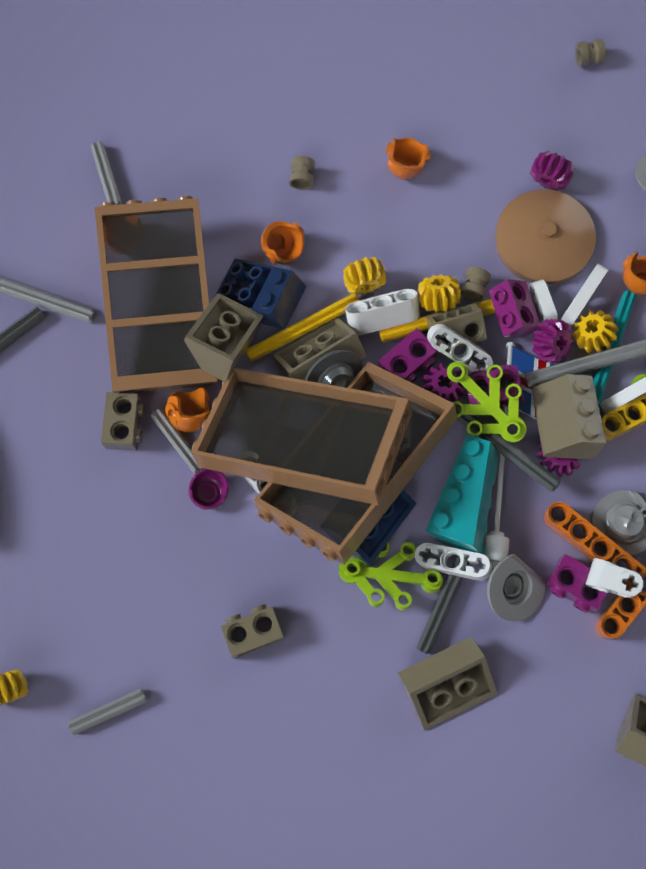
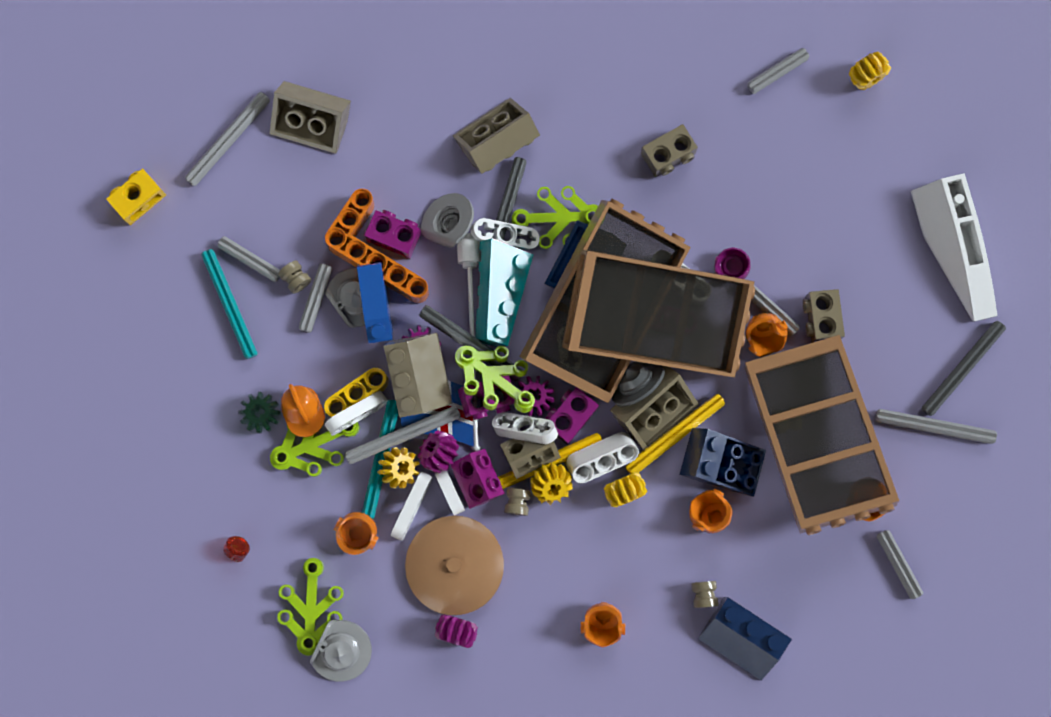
camera: 170 degrees right, 5 degrees up
(222, 336) = (749, 401): dark tan slope -> none
(269, 131) = (744, 638): none -> dark blue slope
(607, 501) = (375, 303): none -> blue slope
(609, 577) = (366, 233): white piece -> none

